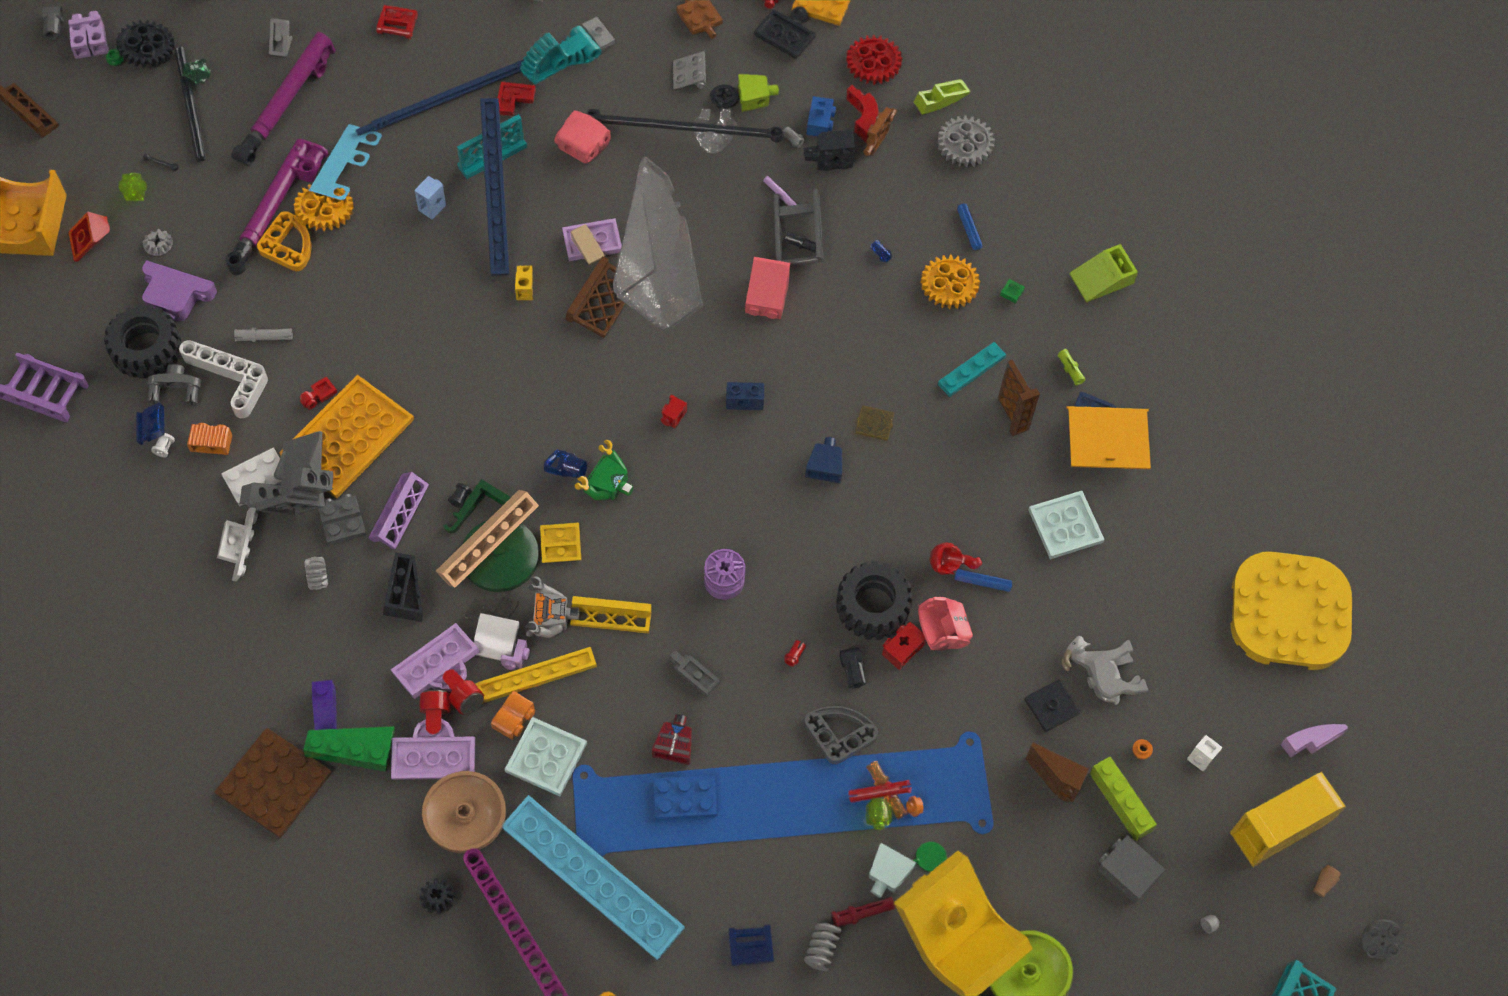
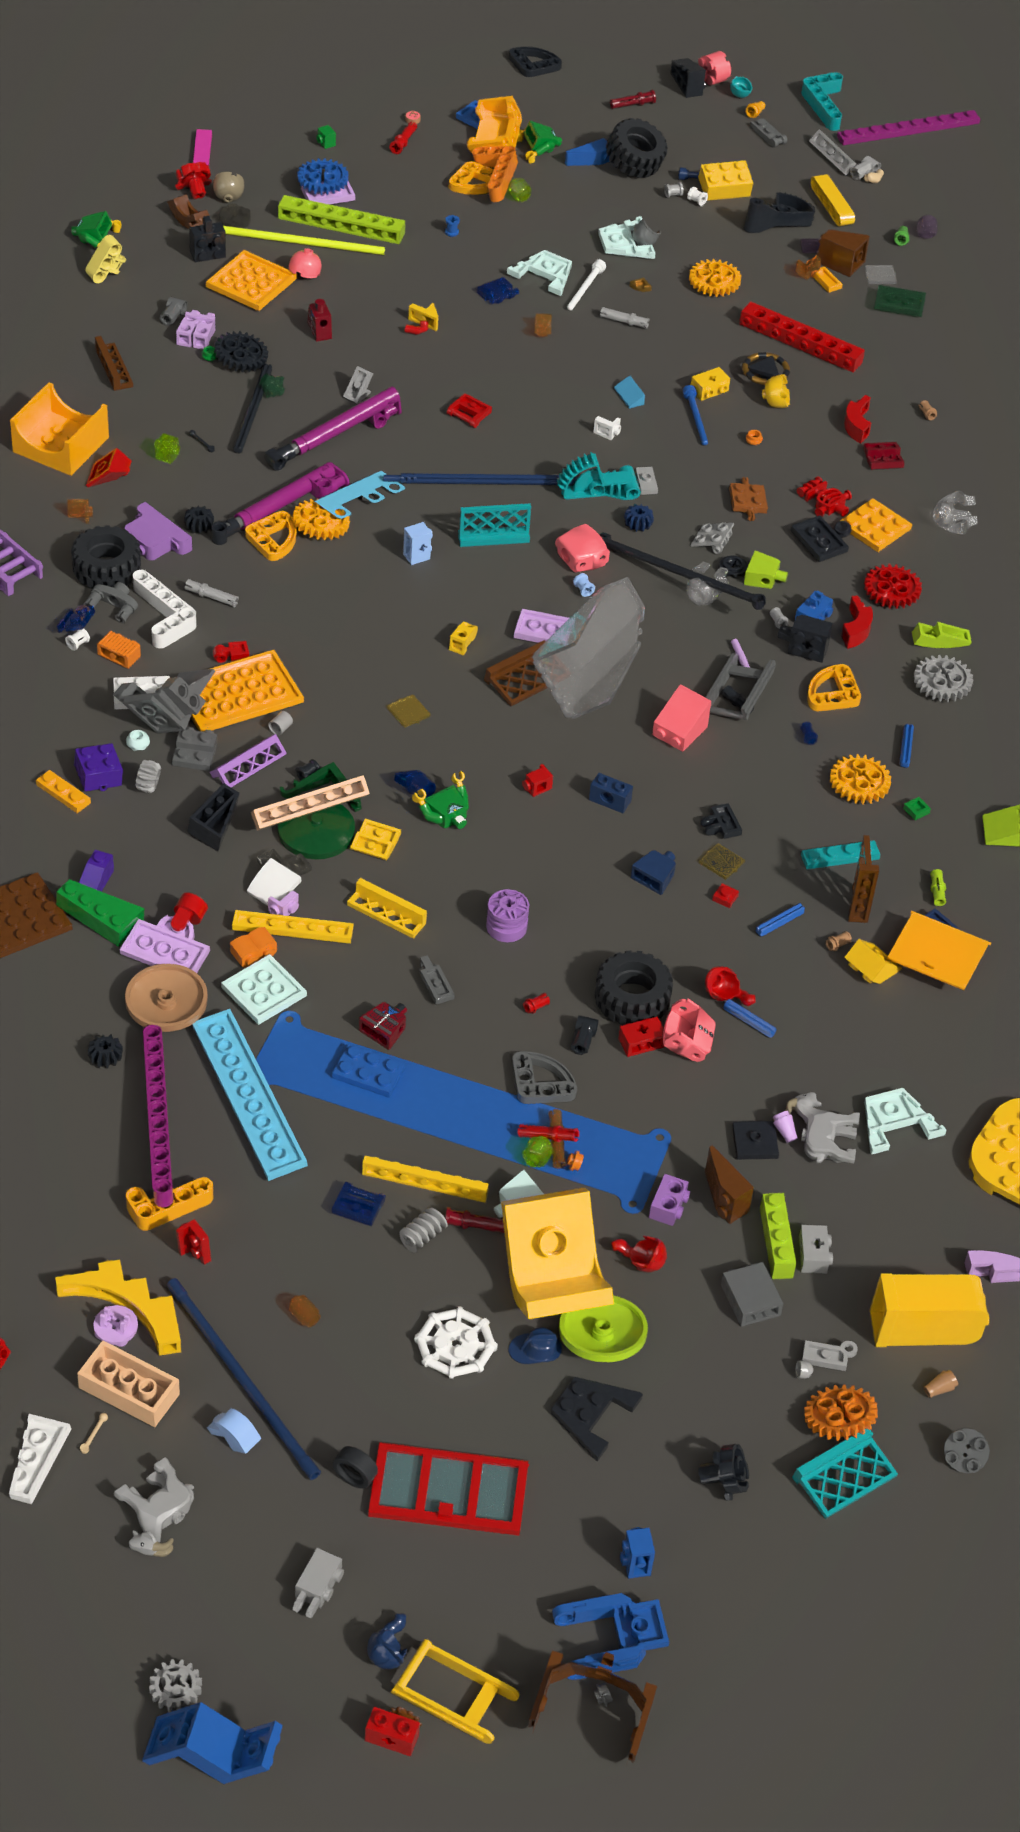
camera: 25 degrees right, 15 degrees down
(84, 293) = (80, 508): none -> clear orange bracket
(162, 247) = (166, 500): light grey gear -> none
(207, 256) = (198, 519): none -> black gear
(235, 543) = (95, 727): white bracket -> none
(241, 623) = (63, 791): none -> light orange plate
(262, 583) = (98, 767): none -> dark purple brick
(281, 539) = (137, 740): none -> light aqua plate
(406, 454) = (280, 723): none -> light grey beam
(442, 667) = (217, 887): lavender plate -> none
(494, 186) = (476, 551): dark blue plate -> none
(511, 93) = (540, 496): red plate -> none
(515, 385) = (408, 711): none -> clear yellow piece
(550, 611) = (333, 884): torso -> none
(586, 244) = (535, 625): tan slope -> none
(603, 175) = (582, 582): none -> light blue bush
(614, 79) = (638, 517): none -> dark blue gear
(804, 888) = (425, 1179): none -> yellow plate
(858, 379) = (725, 822): none -> black hinge
(879, 130) = (862, 638): dark orange plate -> none
(888, 197) = (823, 701): none -> light orange beam
(897, 459) = (725, 895): none -> red plate
(956, 463) = (780, 919): none -> blue axle
(1009, 806) = (667, 1199): none -> medium lavender brick
(1015, 465) = (834, 942): none -> medium nougat pin
(1026, 875) = (647, 1254): none -> red piece
(1056, 473) = (871, 962): none -> yellow slope
(1066, 524) = (856, 1006): light aqua plate -> none
(1071, 680) = (785, 1126): none -> lavender cone
(1142, 754) = (822, 1213): orange plate -> none
(1150, 620) = (894, 1111): none -> light aqua wing
(1159, 806) = (814, 1249): none -> light grey brick
(1204, 753) = (881, 1232): white bracket -> none
(1222, 899) = (828, 1355): none -> light grey hinge
(1277, 941) = (853, 1405): none -> orange gear

